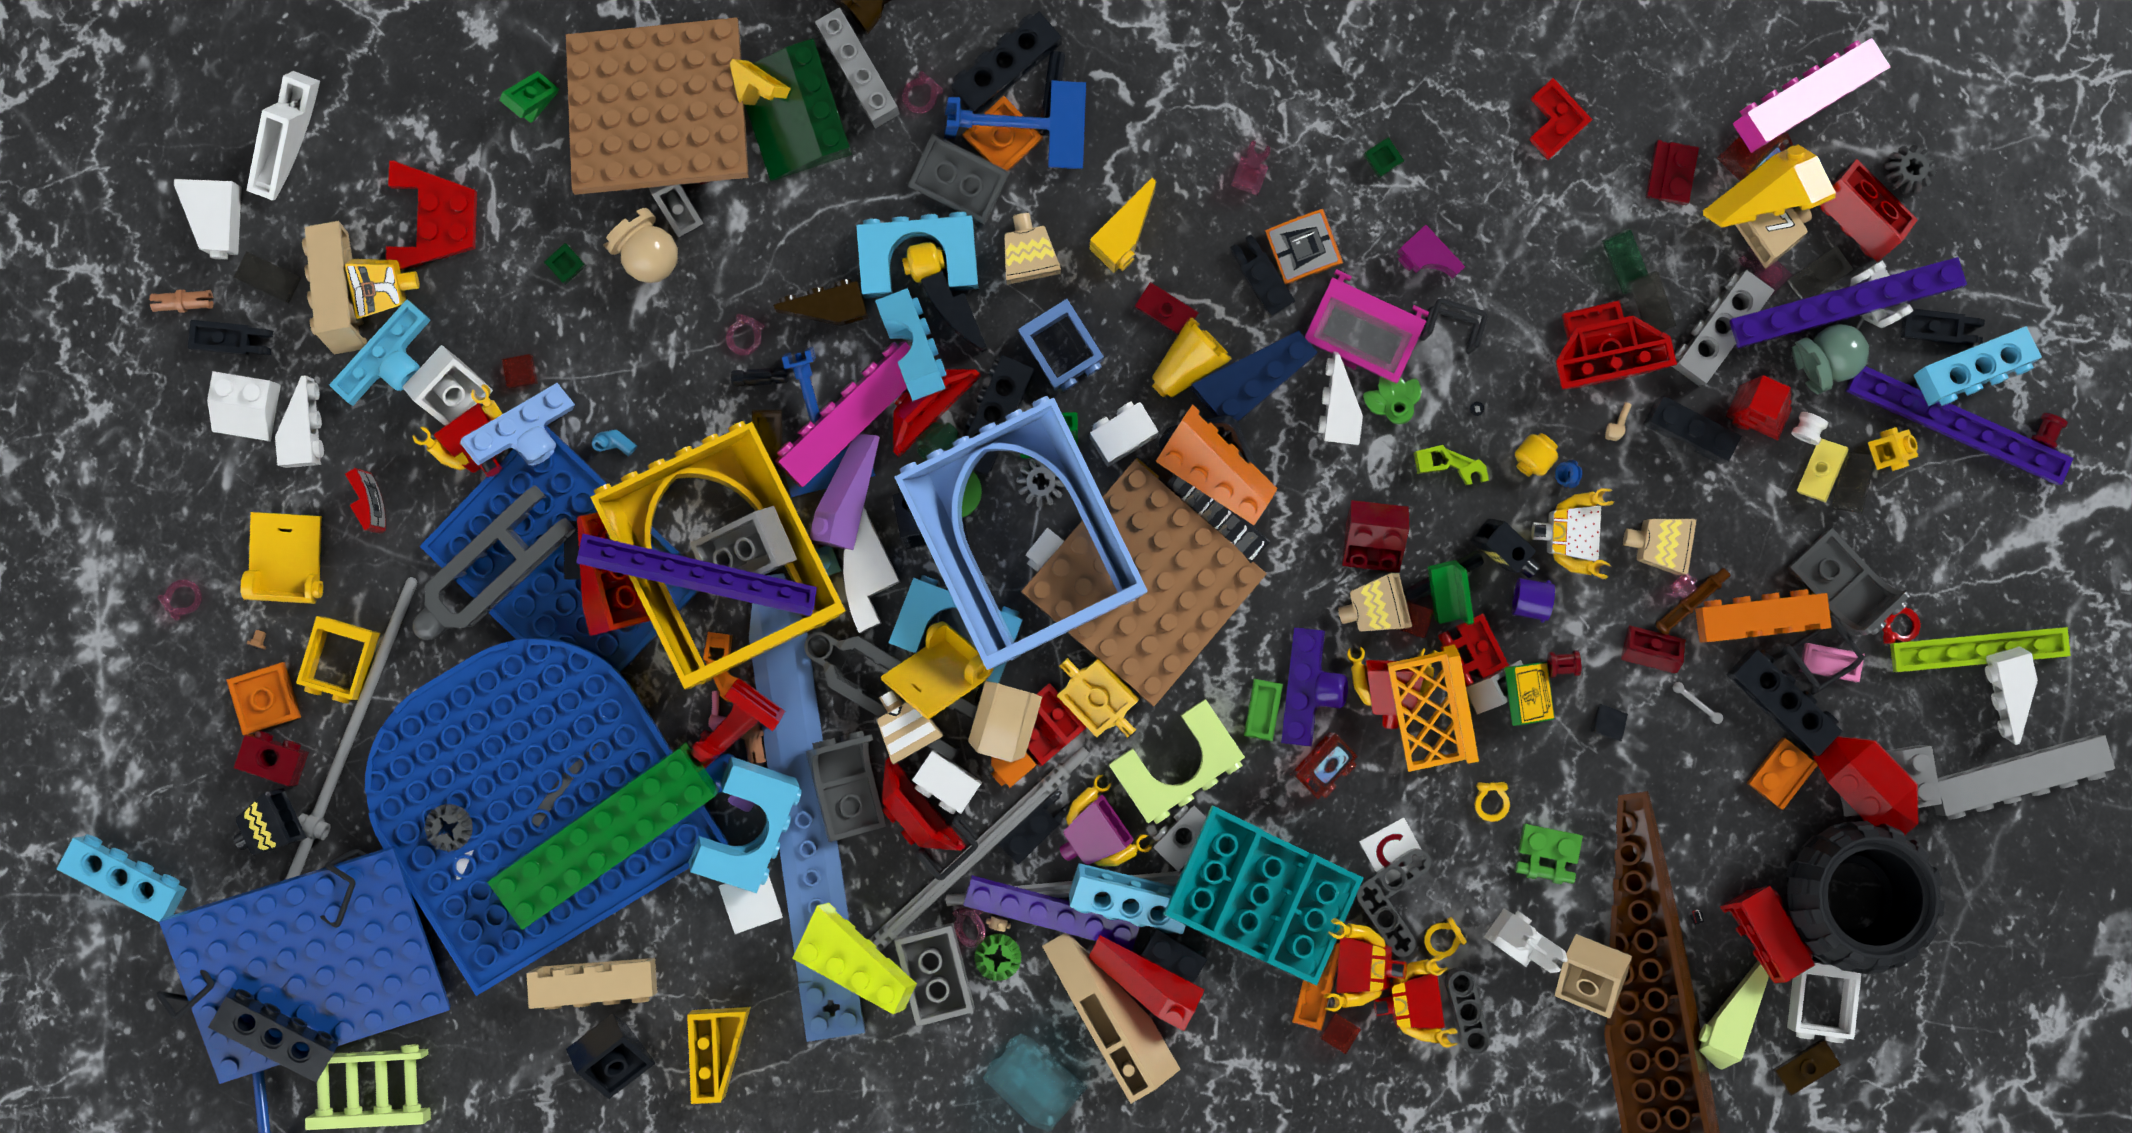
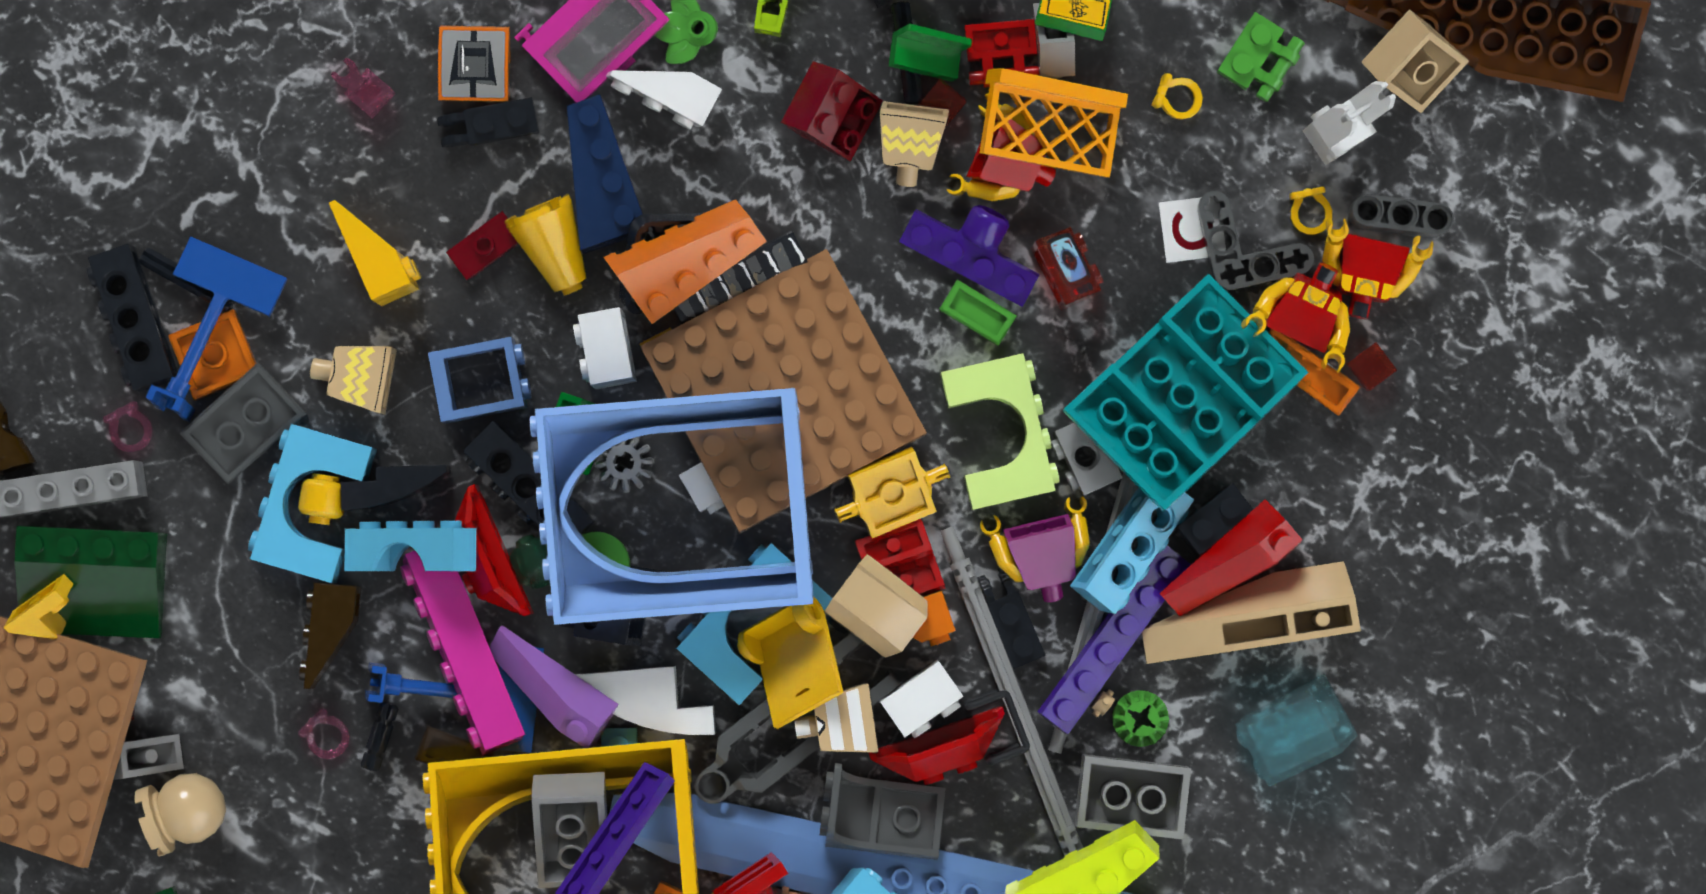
camera: 70 degrees left, 0 degrees up
(960, 914) = (1081, 726): clear pink piece -> none

